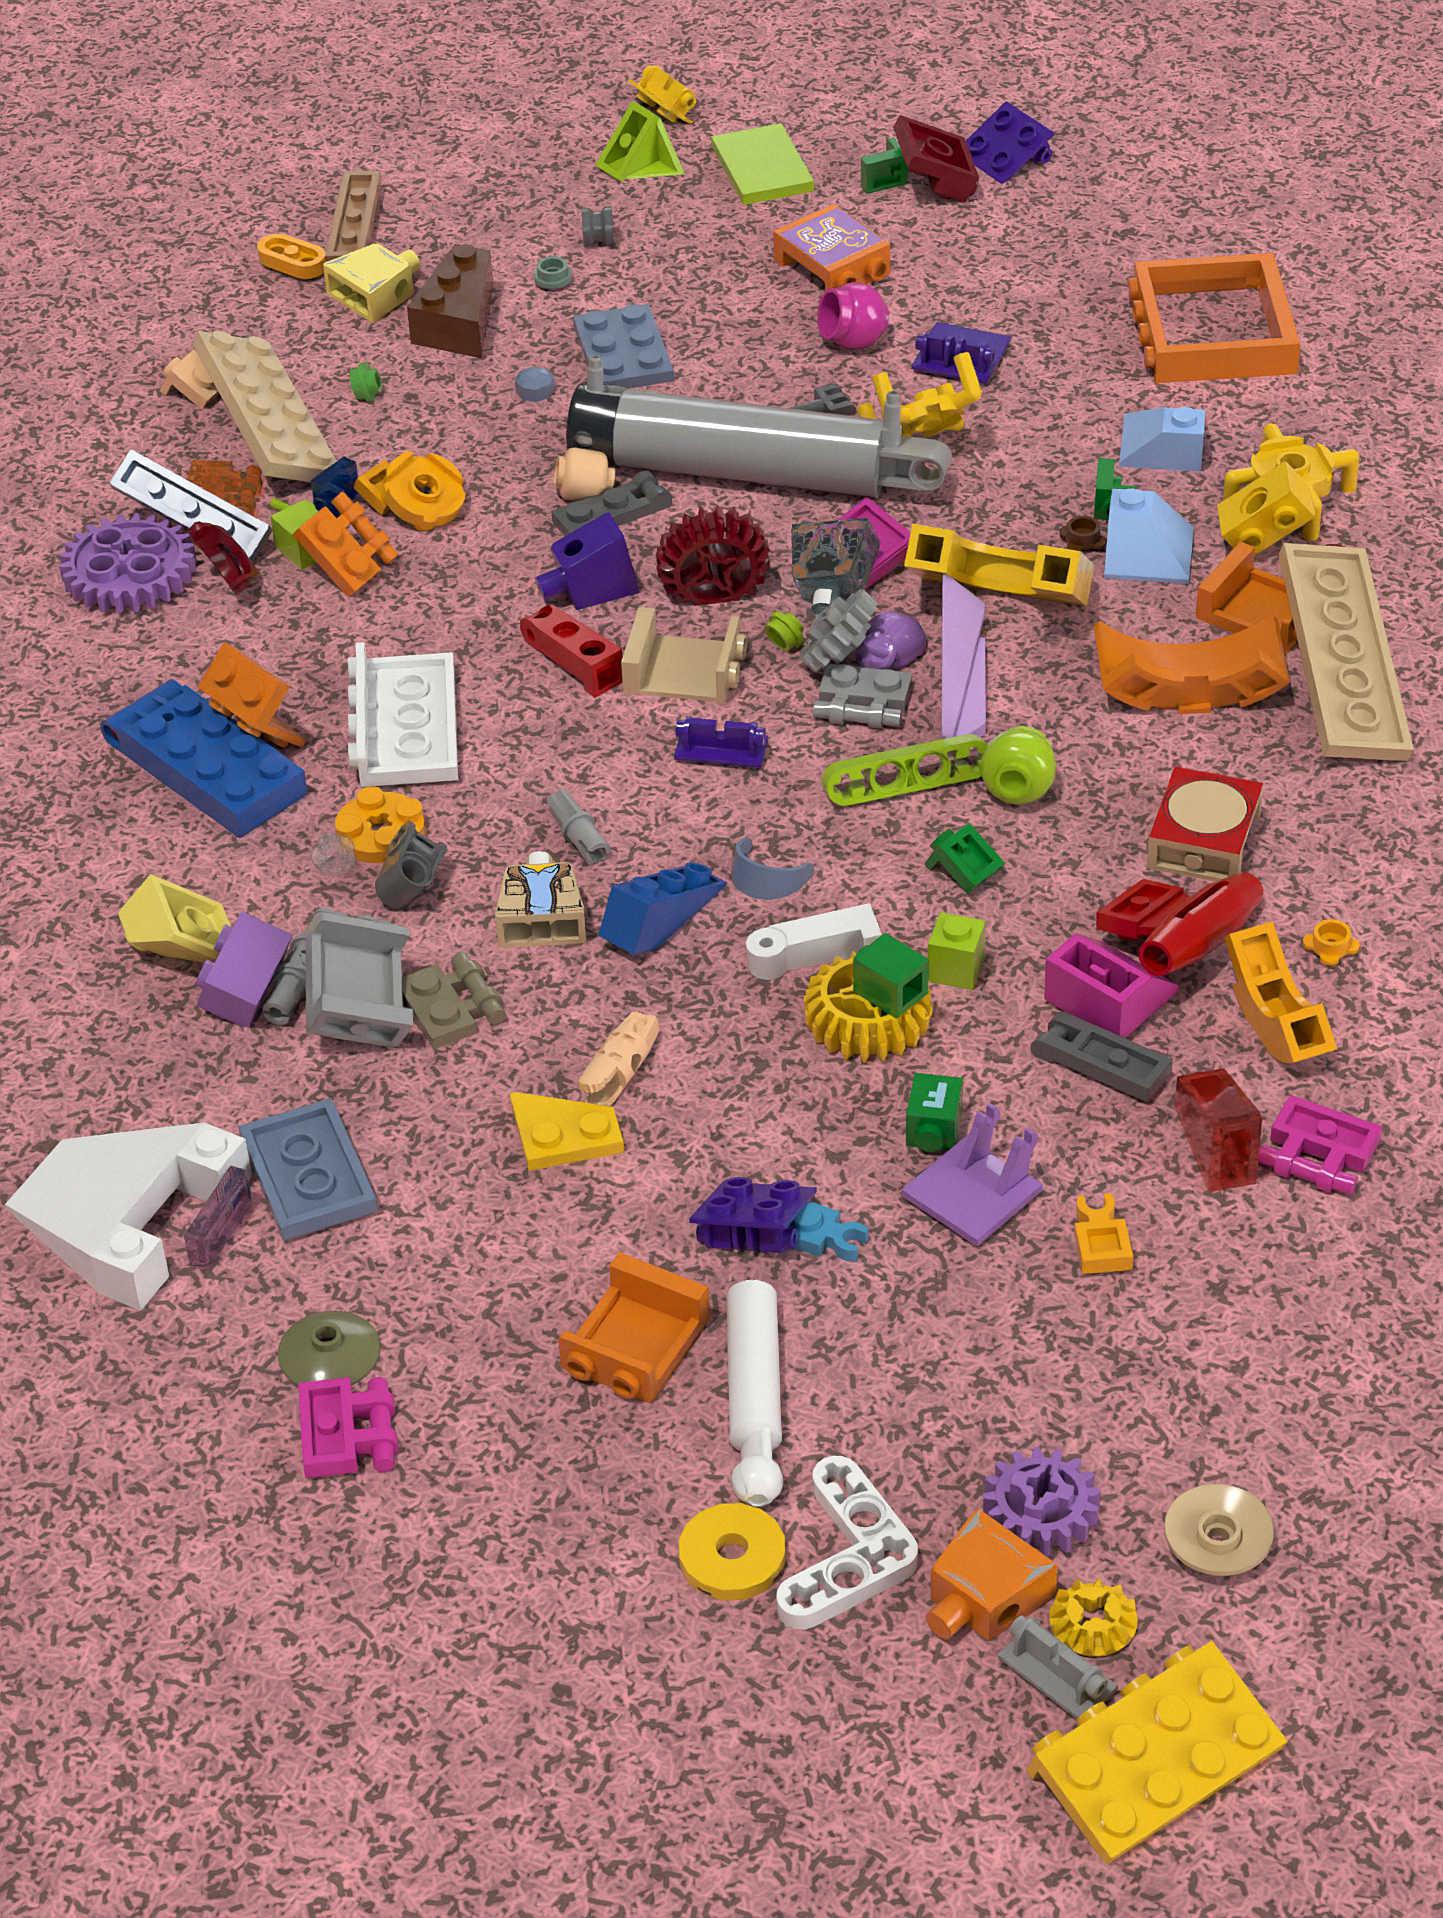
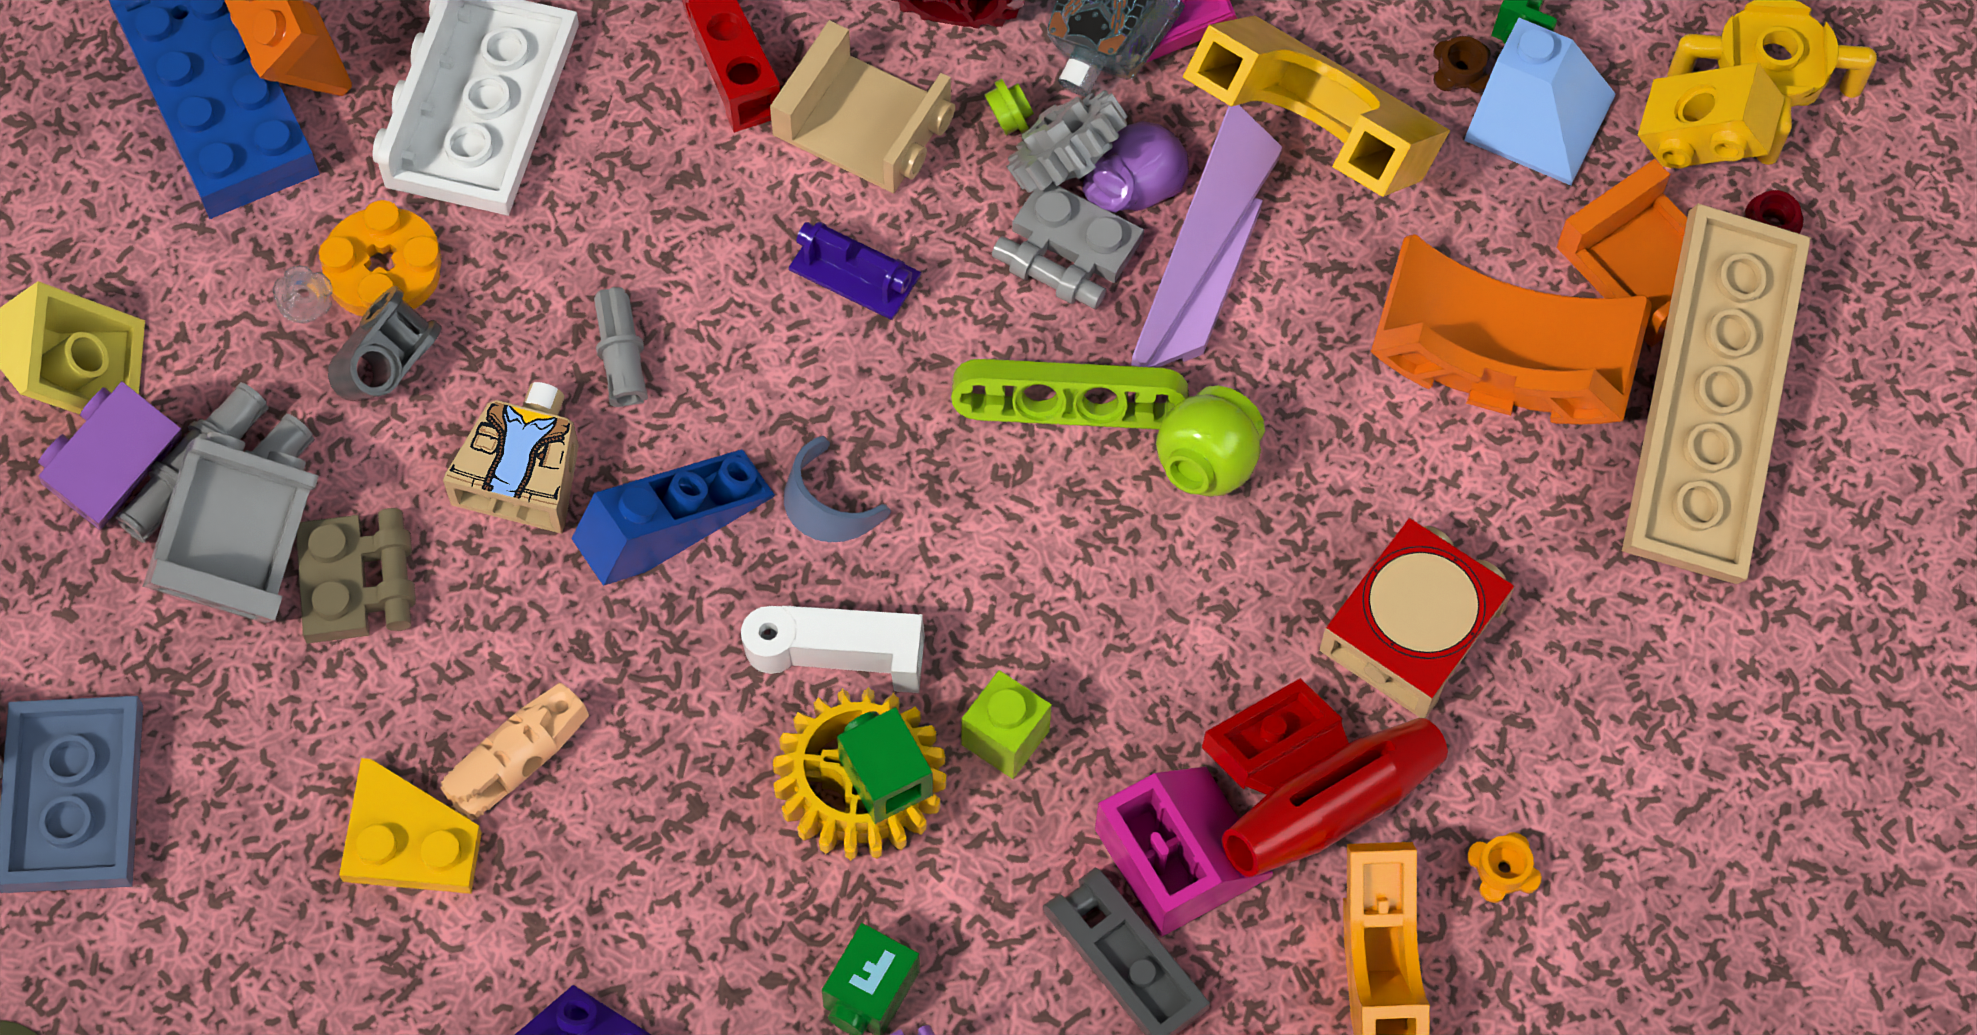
camera: 15 degrees right, 20 degrees up
(965, 857) = (1084, 566): green bracket -> none

